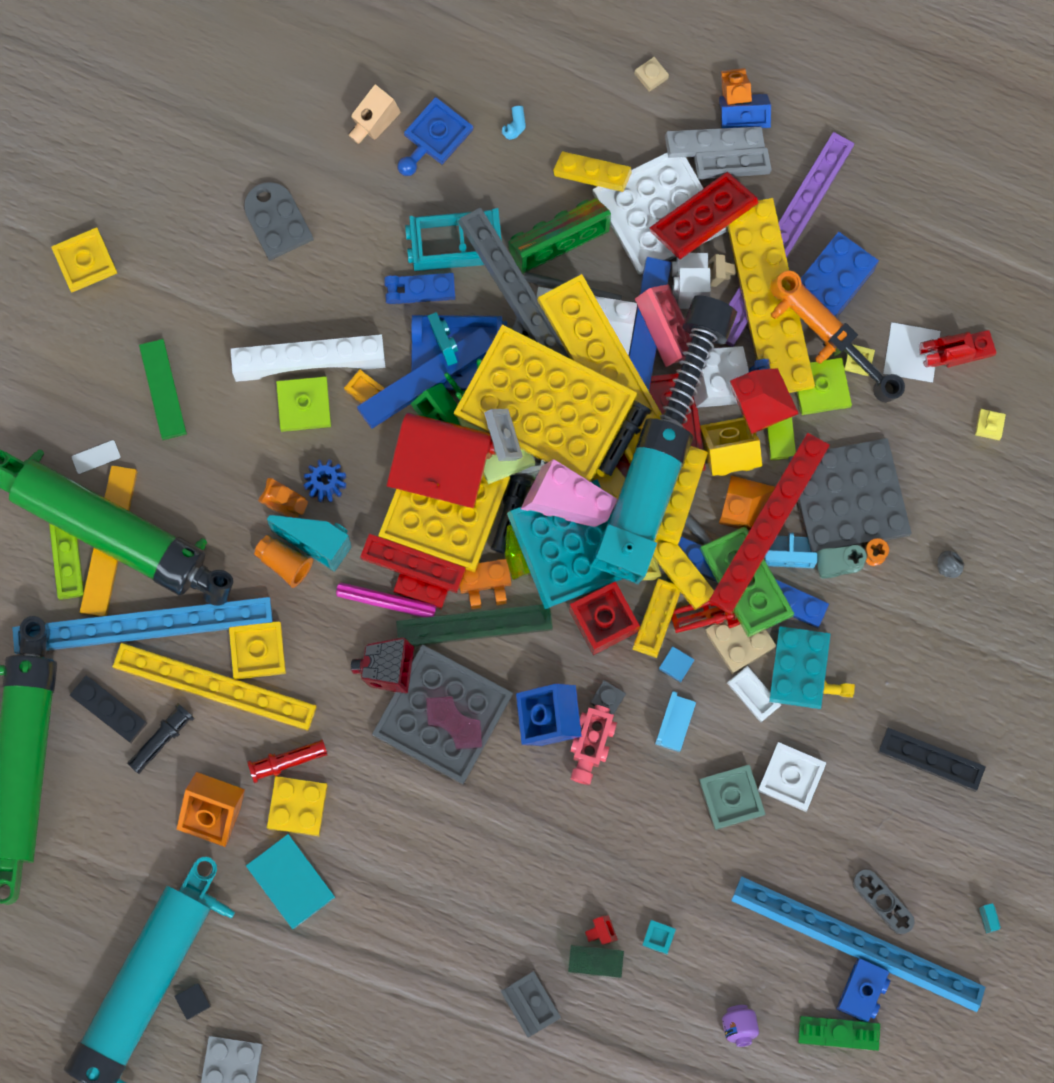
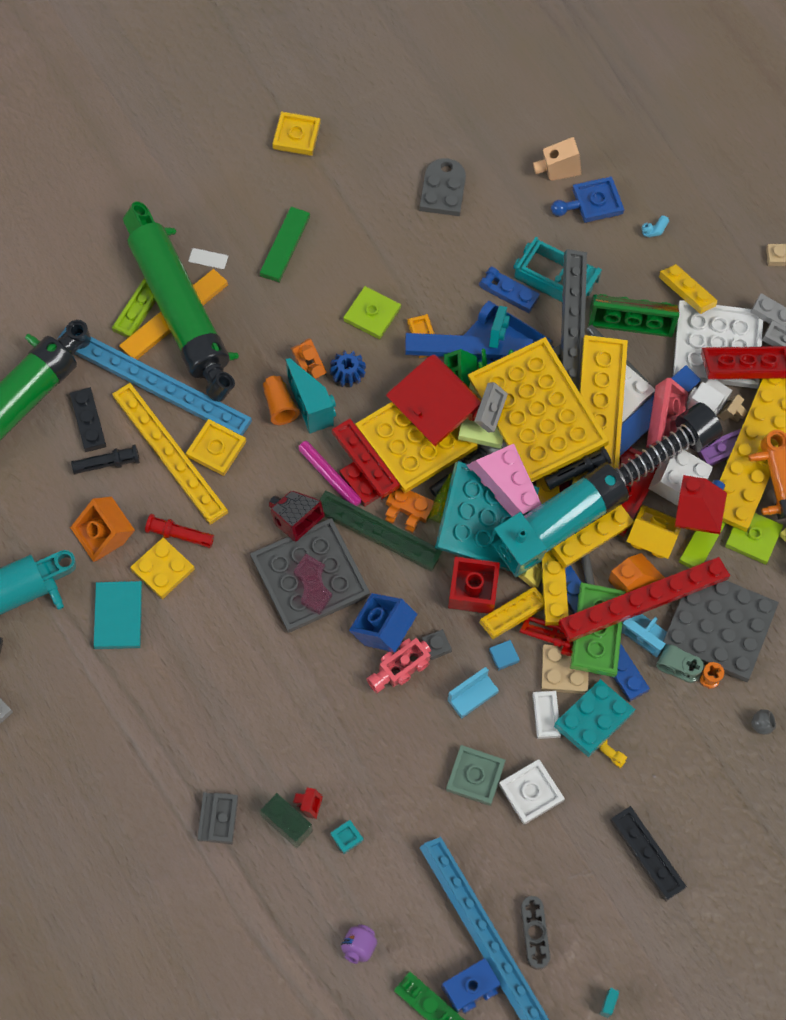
camera: 35 degrees right, 10 degrees down
(265, 360) = (433, 300): white arch -> none

